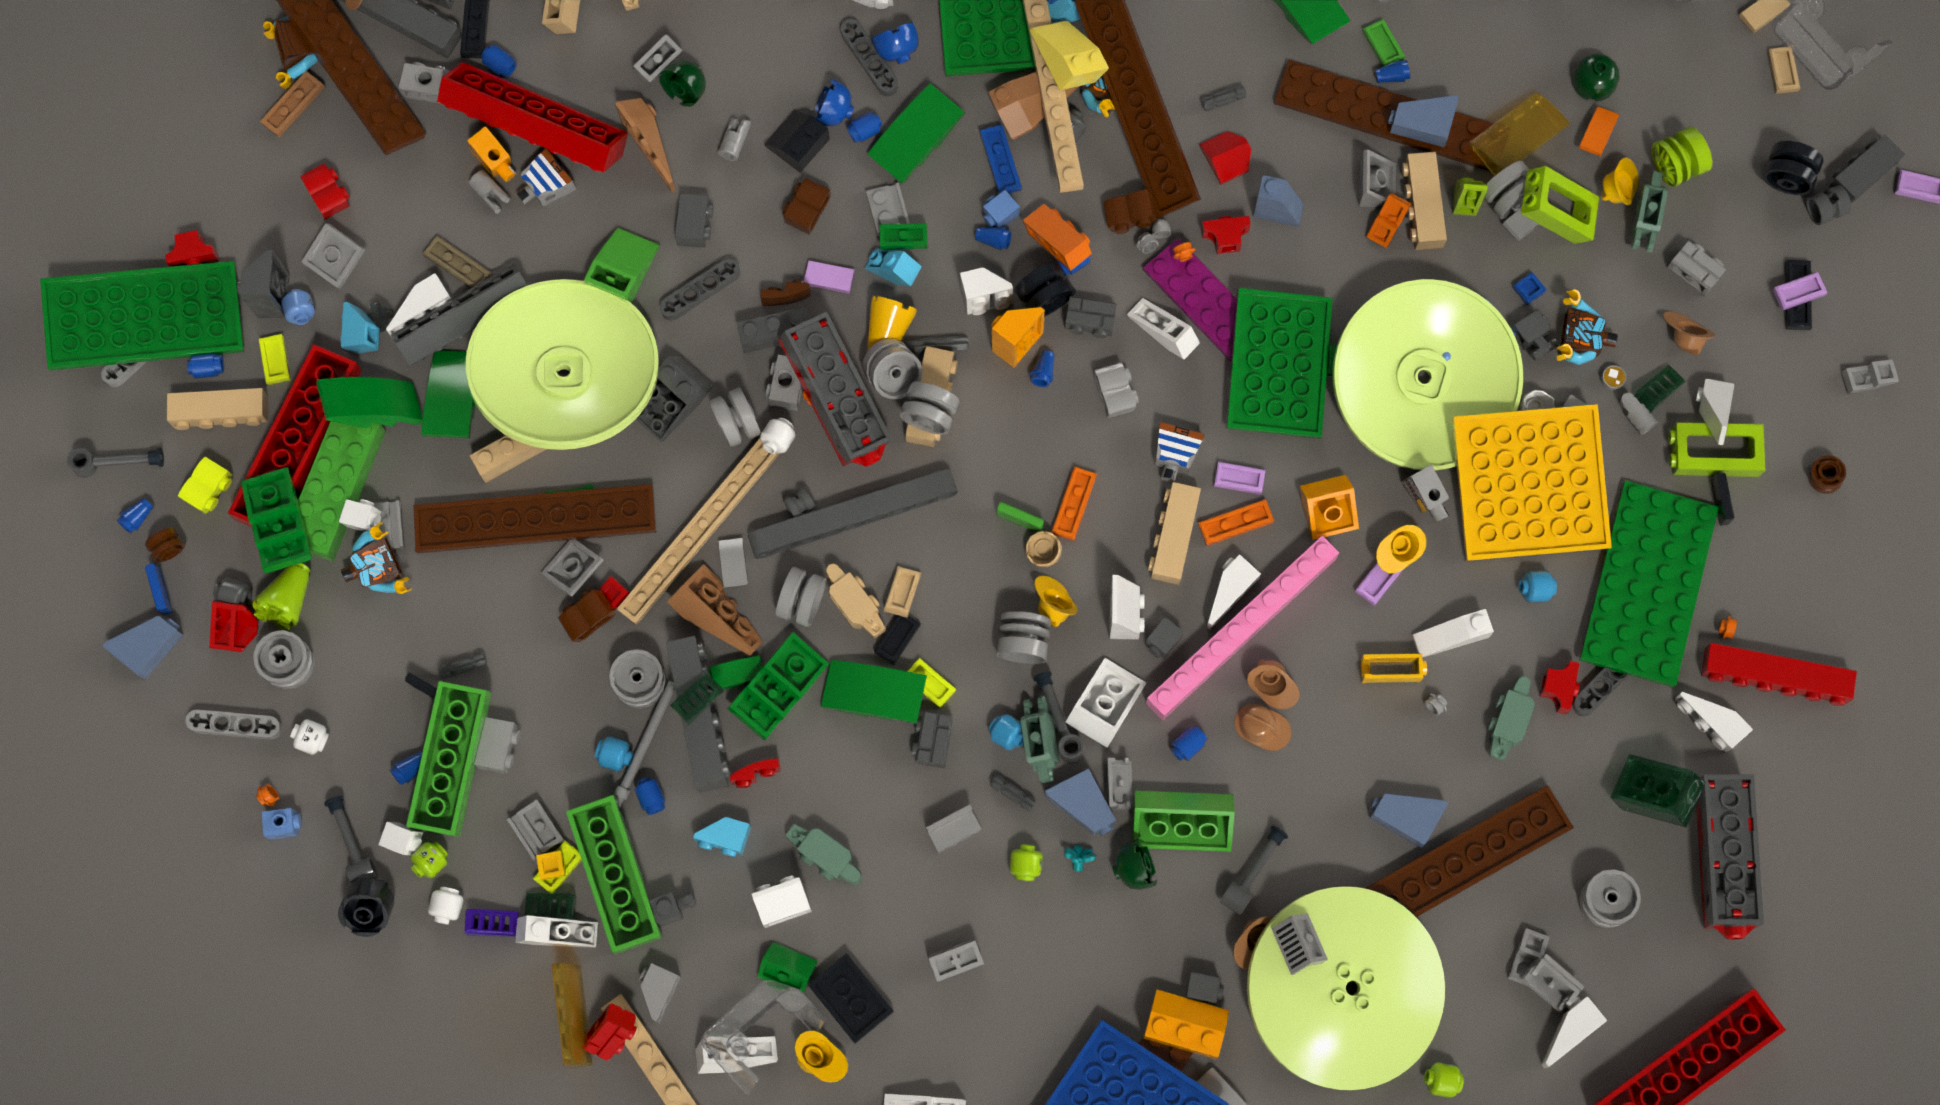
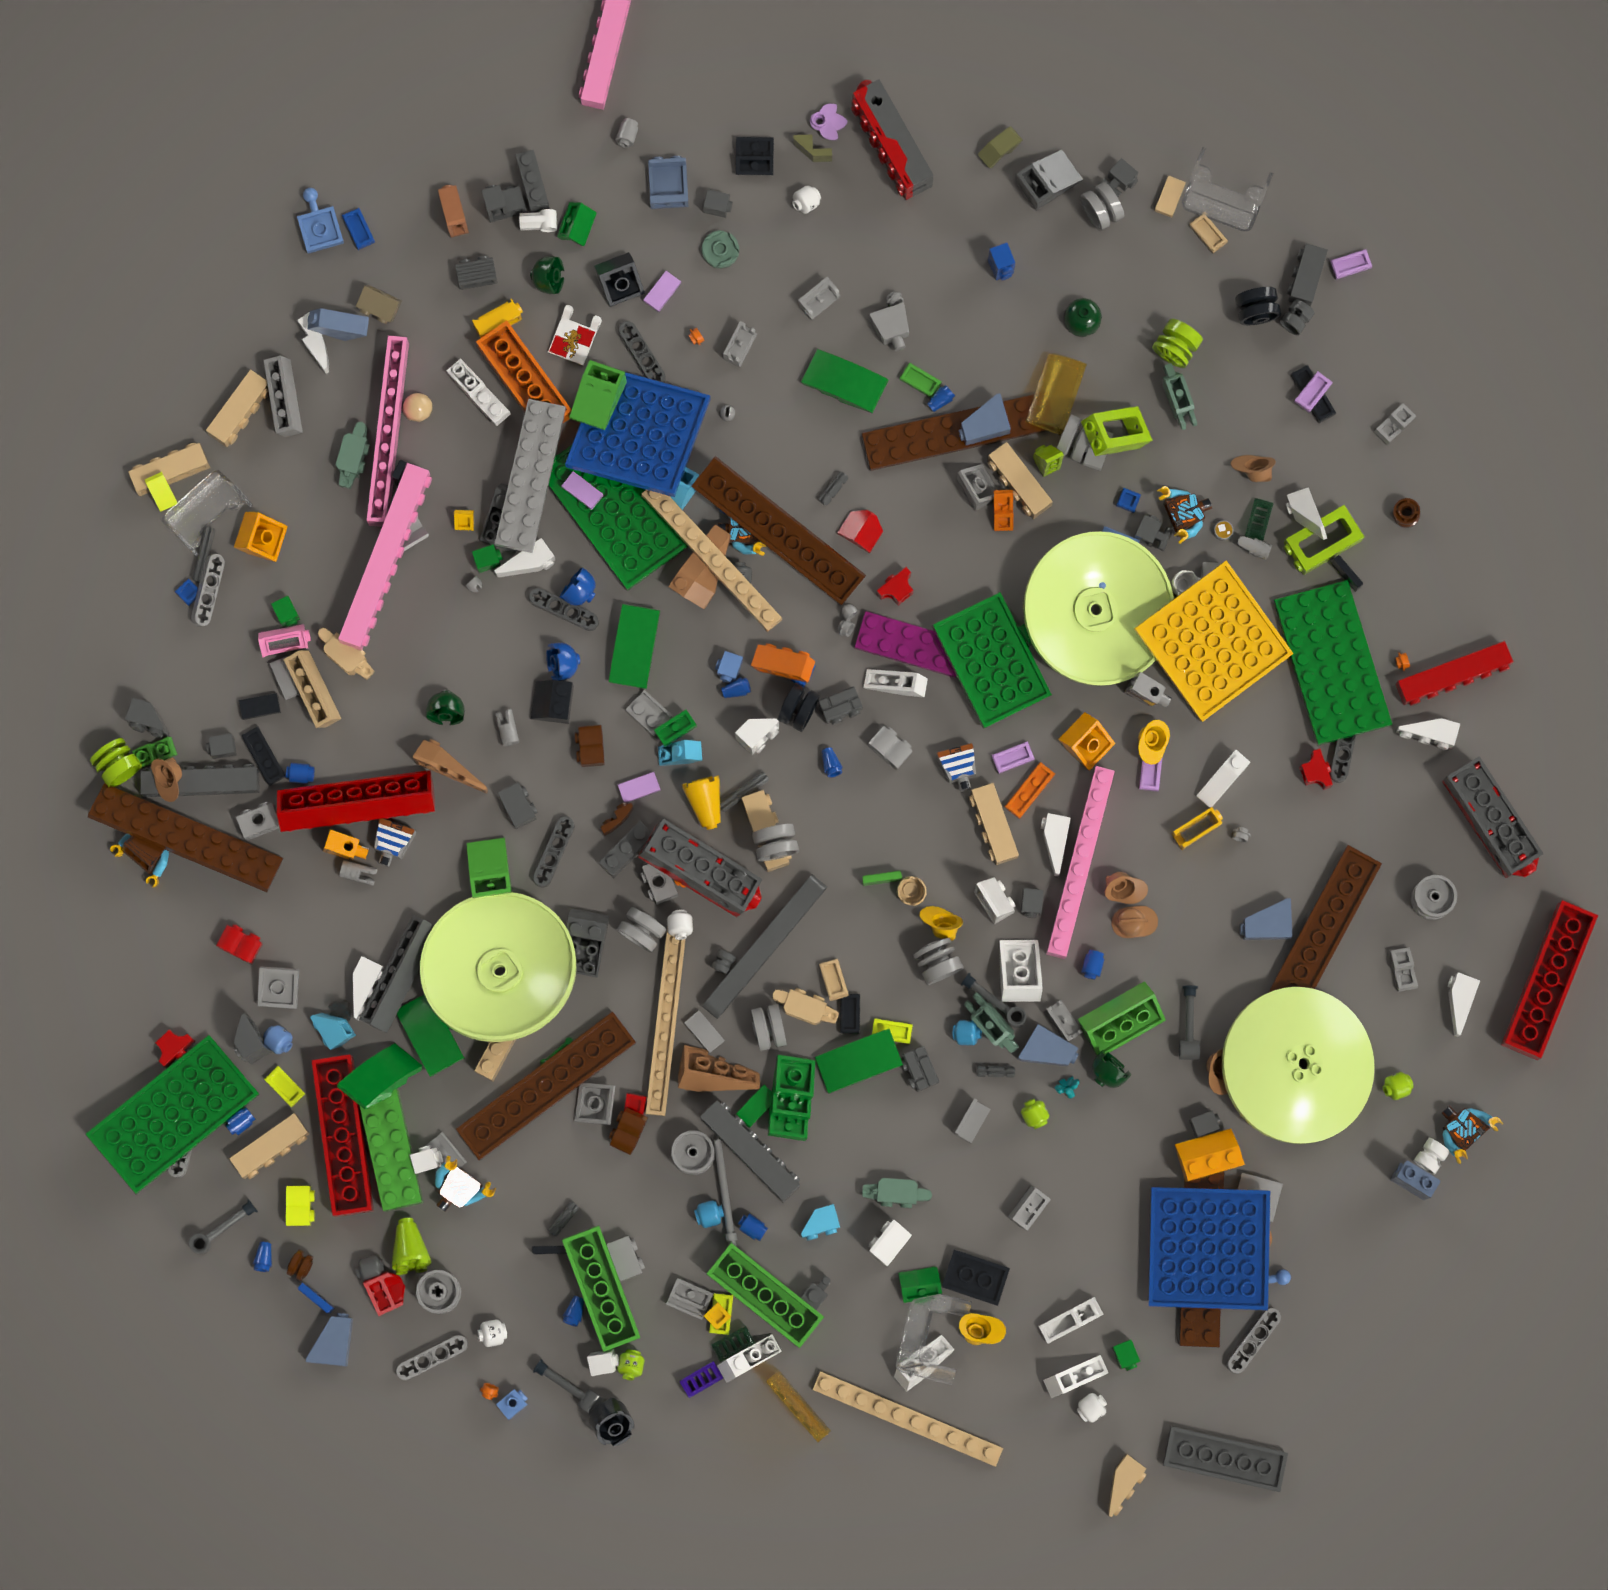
camera: 35 degrees left, 5 degrees up
(276, 520) = (372, 1199): green slope -> none
(292, 104) = (171, 895): medium nougat plate -> none
(445, 905) = (662, 1387): white head -> none
(456, 263) = (369, 938): dark tan tile -> none
(609, 1032) = (832, 1401): red brick -> none
(656, 59) = (416, 704): light grey brick -> none
(658, 988) = (843, 1352): light grey slope -> none
(703, 704) = (749, 1159): clear green slope -> none
(747, 775) = (810, 1171): red slope -> none
(864, 127) = (594, 663): blue brick -> none
(891, 368) = (729, 828): light grey wheel -> none
(1000, 159) = (706, 629): blue plate -> none
(1016, 333) = (799, 751): light orange slope -> none
(1069, 55) = (710, 526): light yellow slope -> none
(1074, 503) = (911, 845): orange tile -> none
(1130, 211) = (821, 613): reddish brown brick -> none
(1183, 252) = (877, 620): orange plate -> none
(1278, 202) = (920, 545): sand blue slope -> none
(1299, 943) = (1252, 1056): light grey panel -> none
(1512, 719) = (1297, 814): sand green hinge -> none
(1537, 586) = (1260, 711): dark azure head -> none
(1552, 982) = (1429, 977): light grey hinge -> none
(1599, 131) = (1109, 356): orange slope -> none
(1621, 183) = (1147, 386): yellow piece -> none
(1657, 790) = (1422, 805): clear green brick -> none
(1697, 267) = (1234, 417): light grey brick -> none

